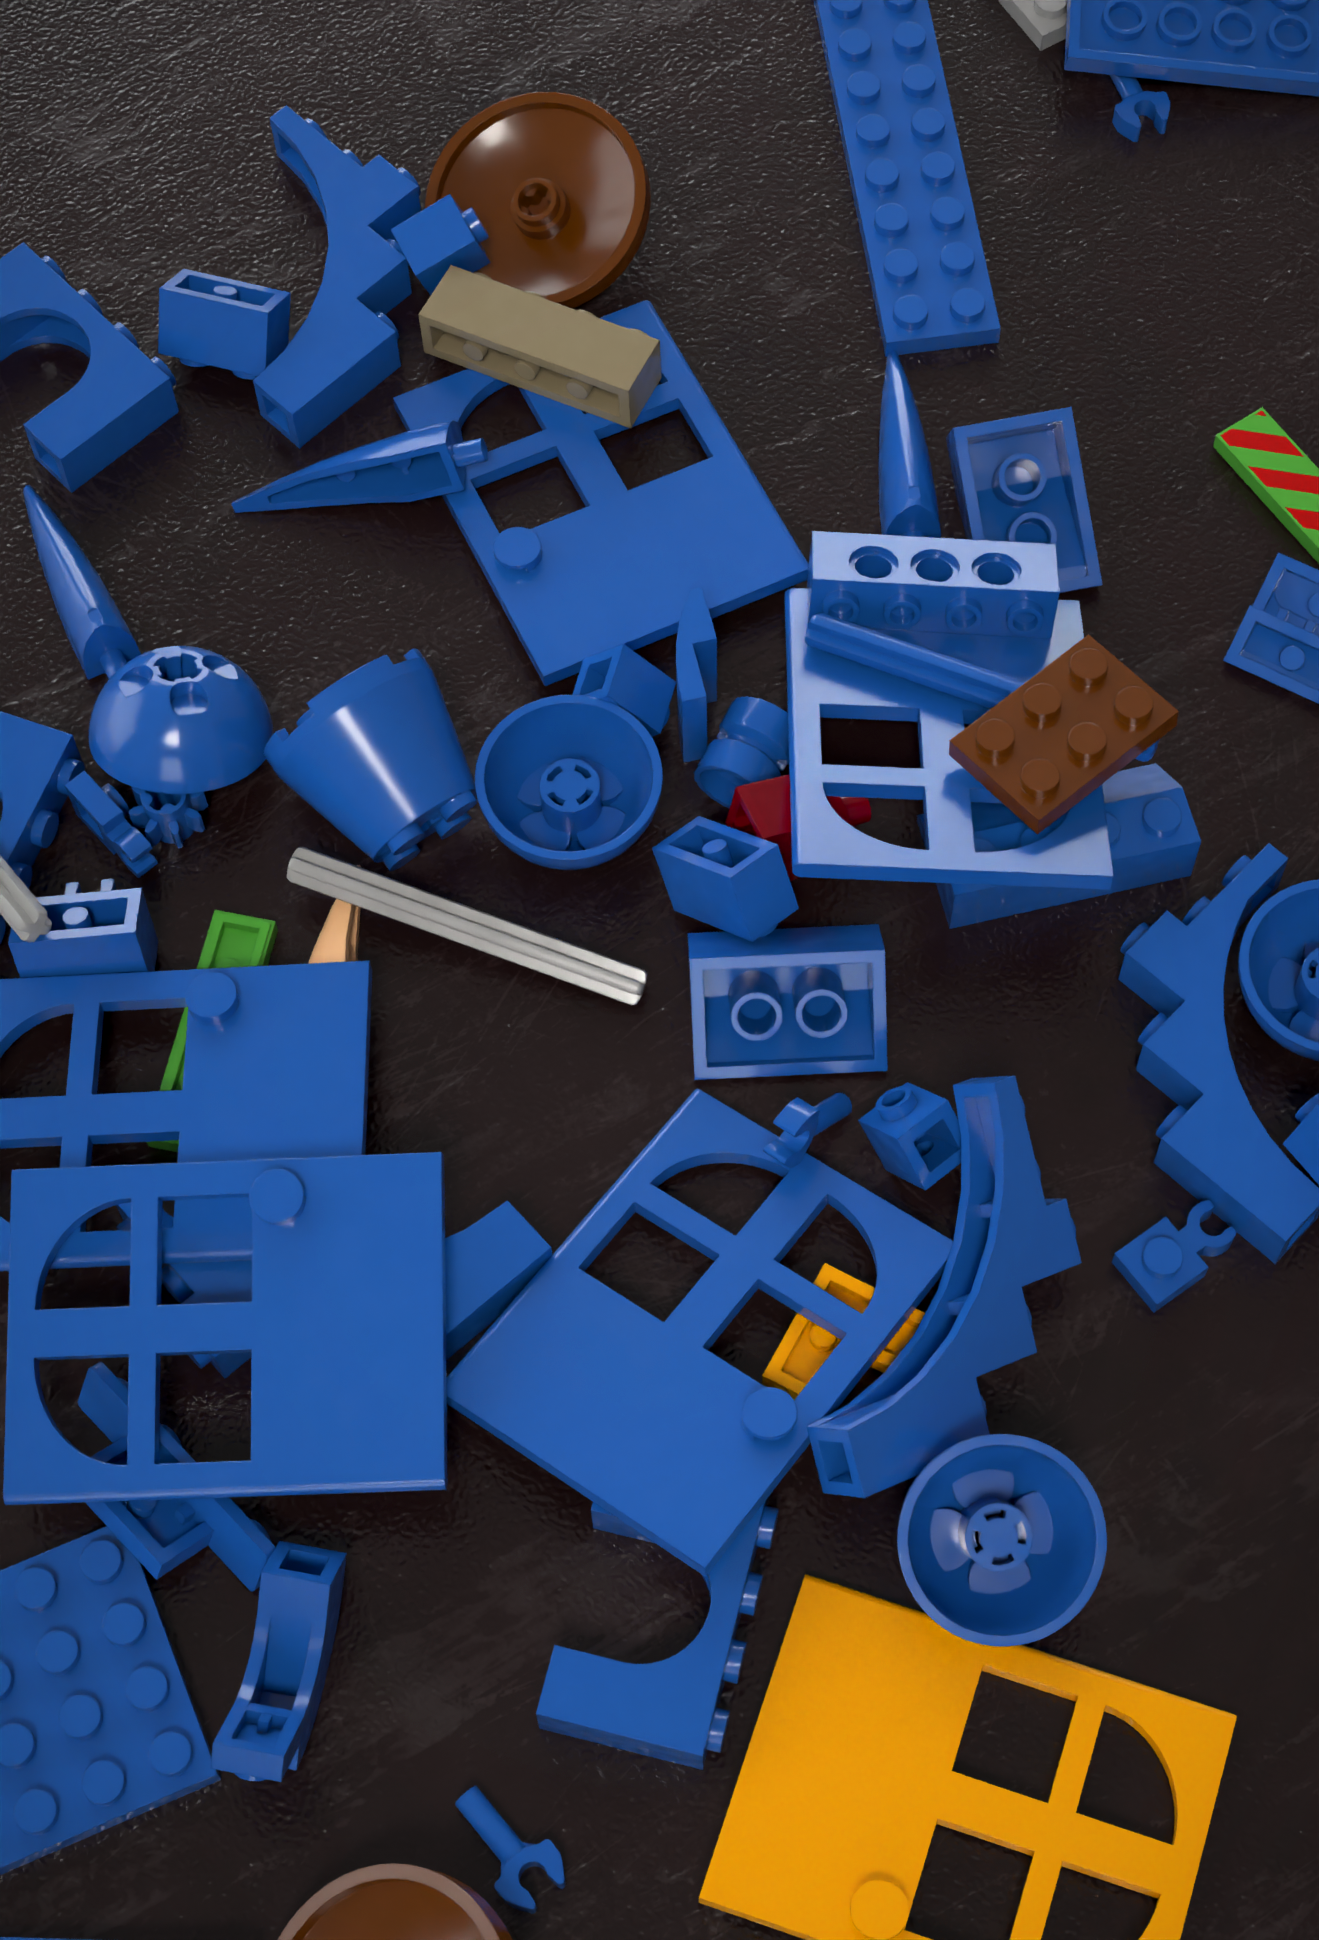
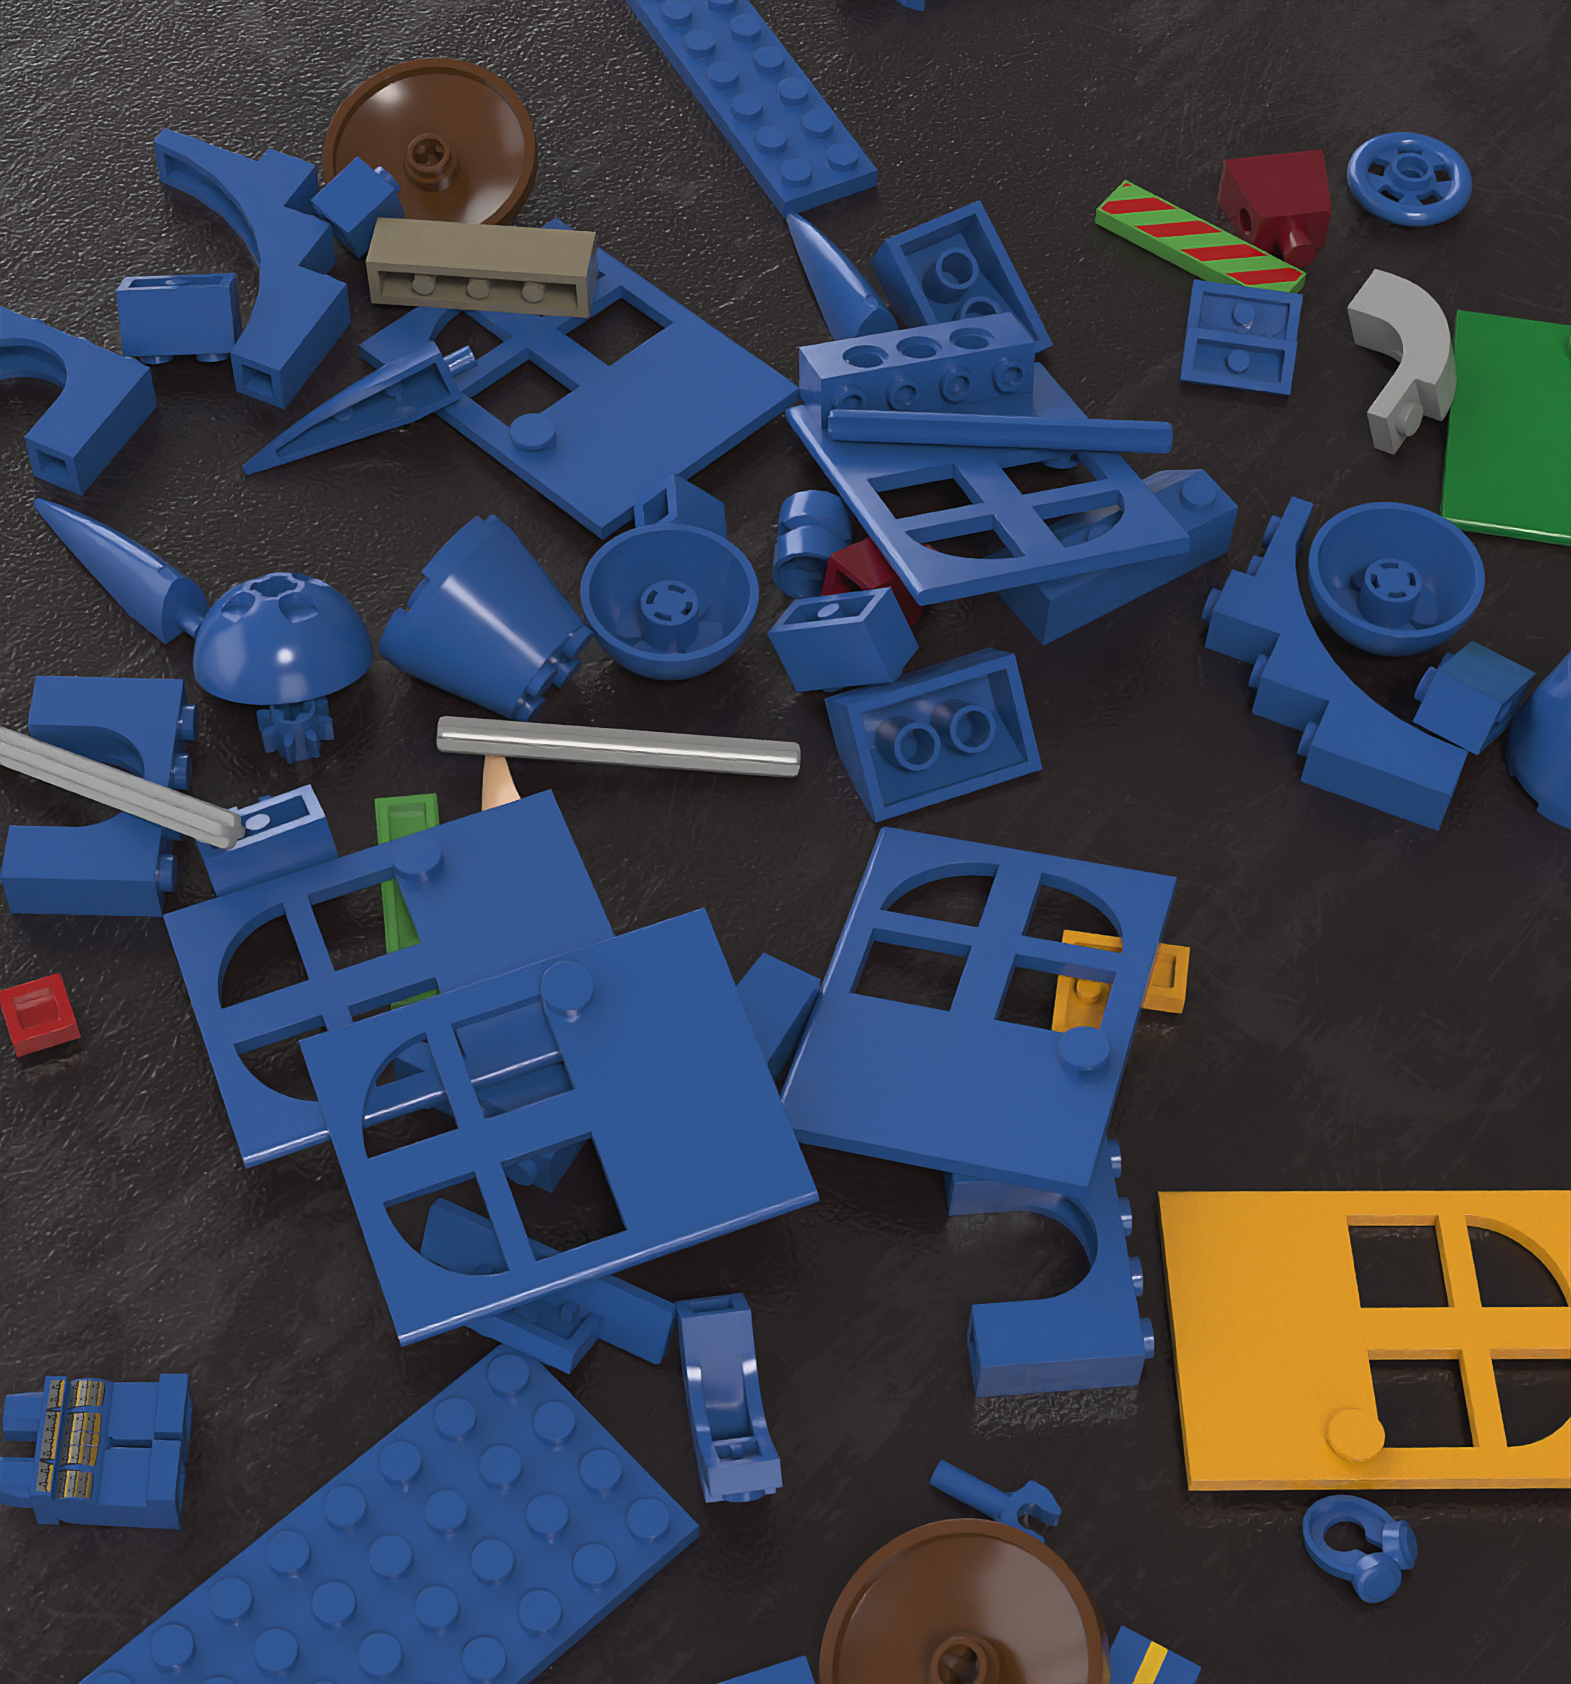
camera: 25 degrees left, 10 degrees down
(104, 814) = (237, 748): blue plate -> none
(695, 673) = (743, 489): blue slope -> none
(802, 1123) = (999, 816): blue bar -> none
(914, 1134) = (1099, 803): blue brick -> none
(977, 1316) = (1220, 931): blue arch -> none
(1032, 1562) = (1352, 1078): blue piece -> none
(1063, 733) = (1094, 441): reddish brown plate -> none
(1167, 1260) = (1351, 849): blue plate -> none

